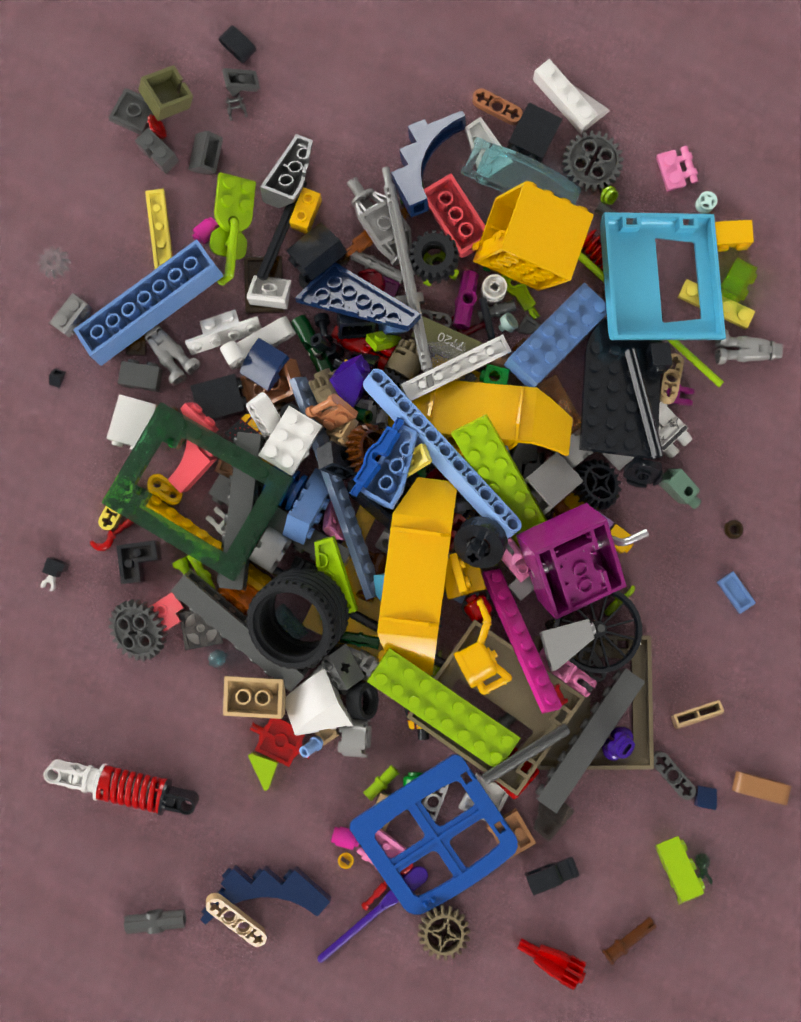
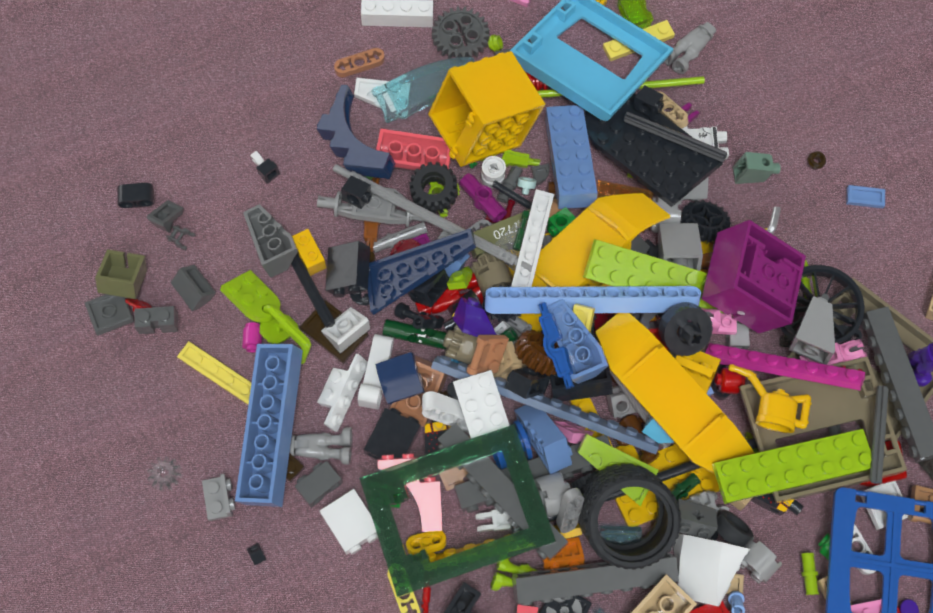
camera: 55 degrees left, 15 degrees down
(266, 572) = (570, 510): none -> light grey beam
(344, 118) = (266, 169): none -> black piece
(377, 202) = (356, 192): none -> black brick
(457, 352) = (520, 232): none -> dark green piece
(534, 132) = (402, 51): black brick -> none
(643, 472) = (723, 182): black plate -> none

